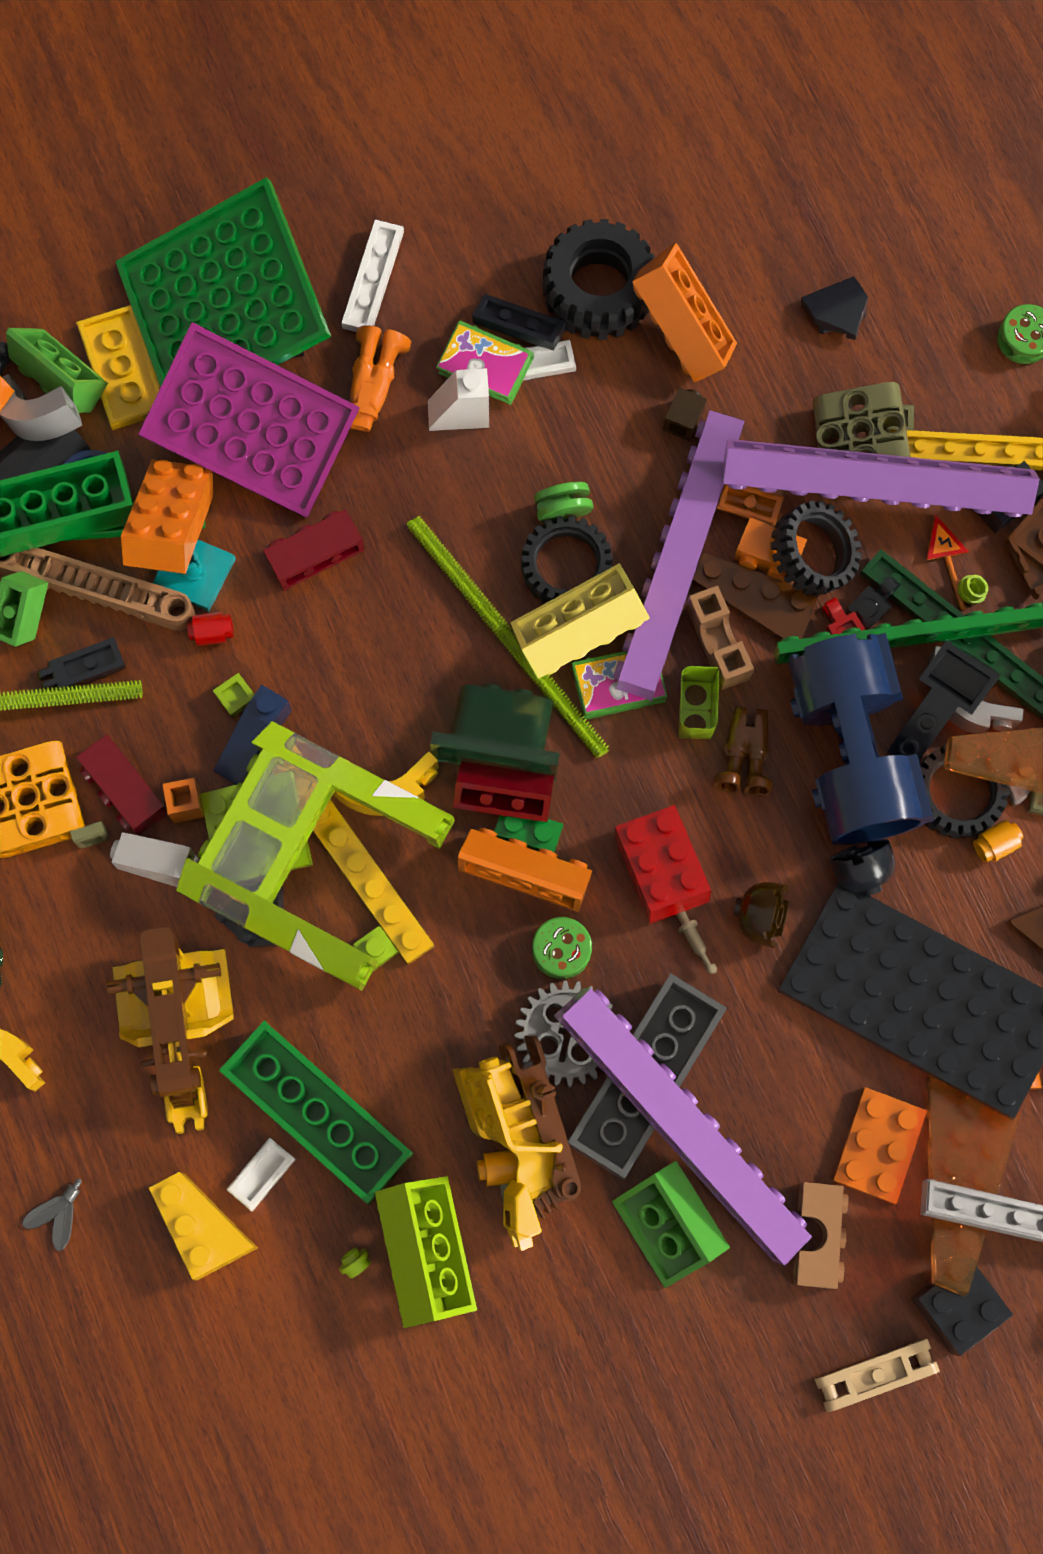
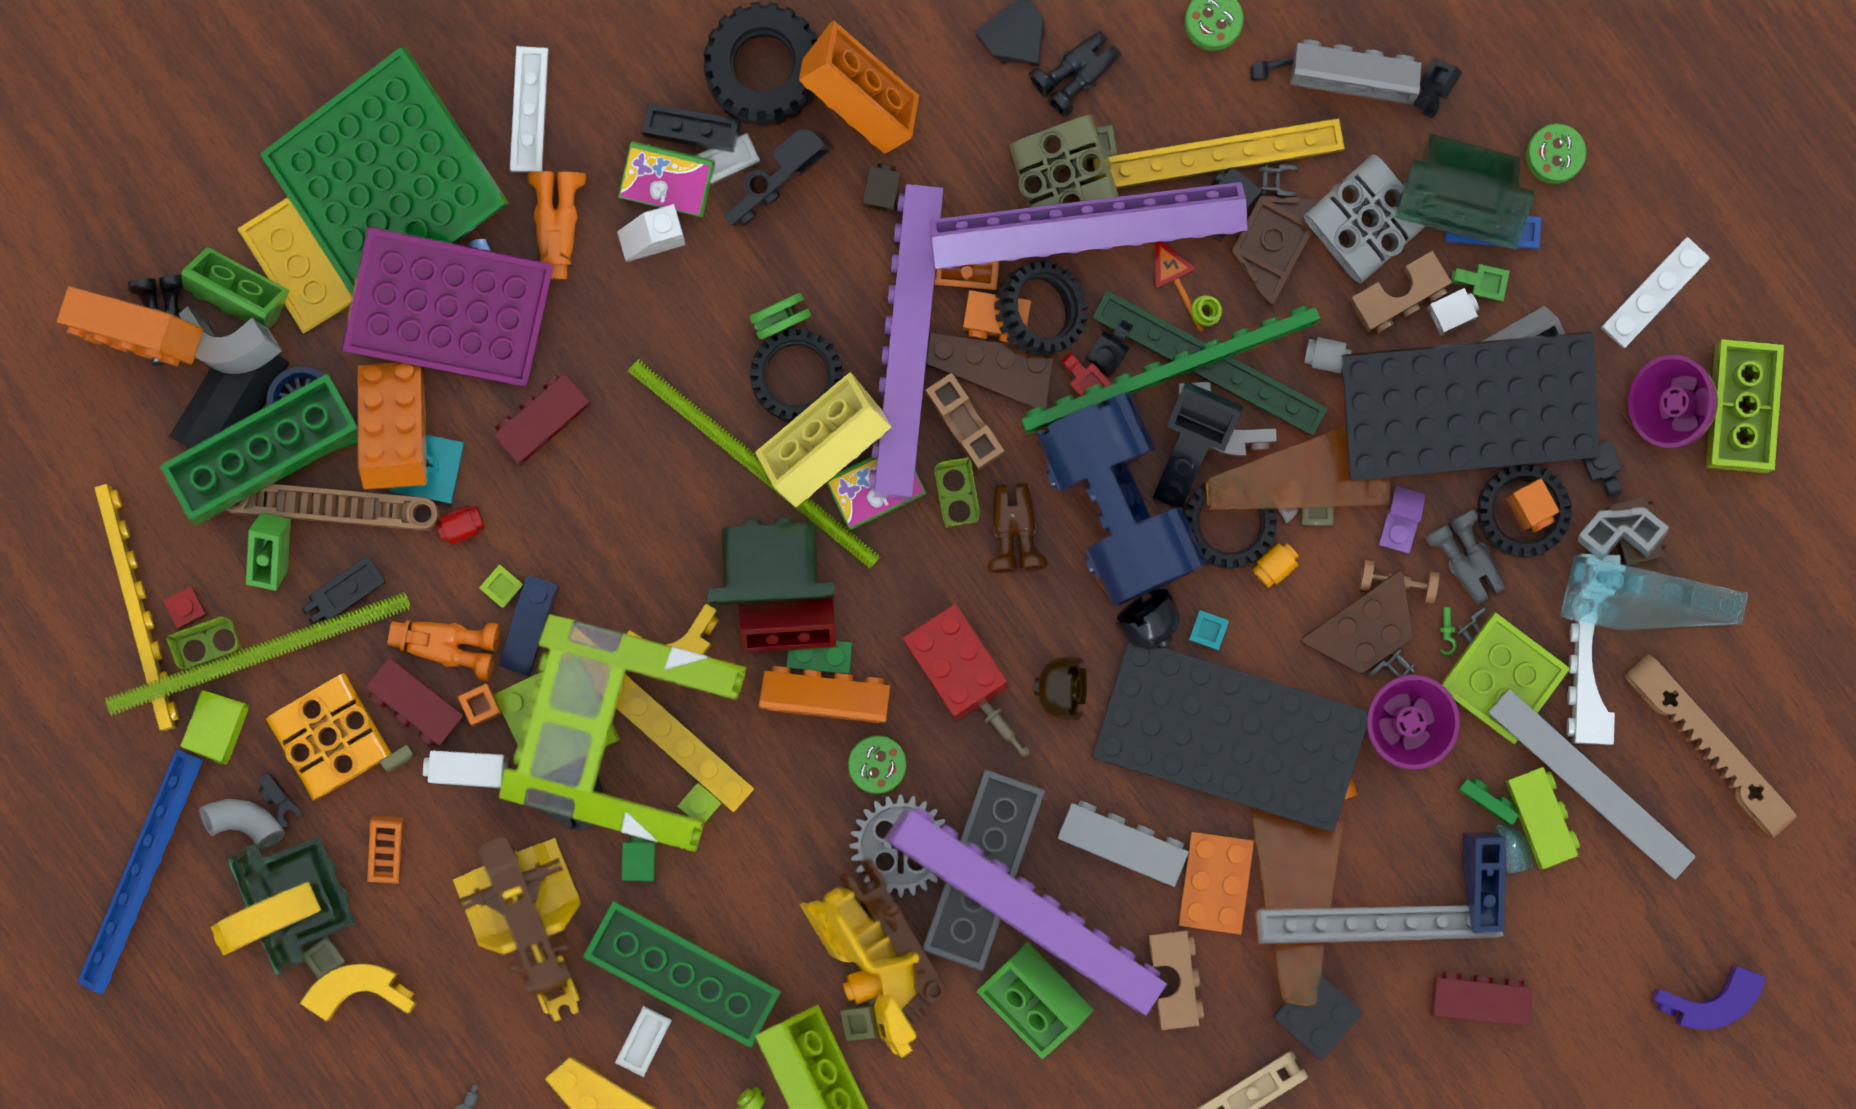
camera: 15 degrees left, 10 degrees up
(42, 918) = (385, 822): none -> orange slope
(163, 733) = (441, 641): none -> orange piece
(301, 988) = (638, 860): none -> green brick
(485, 1205) = (859, 1022): none -> olive plate
(617, 361) = (795, 158): none -> black plate
(793, 1084) = (1122, 844): none -> light grey brick
(899, 345) = (1083, 64): none -> black piece
(919, 890) = (1208, 630): none -> teal plate

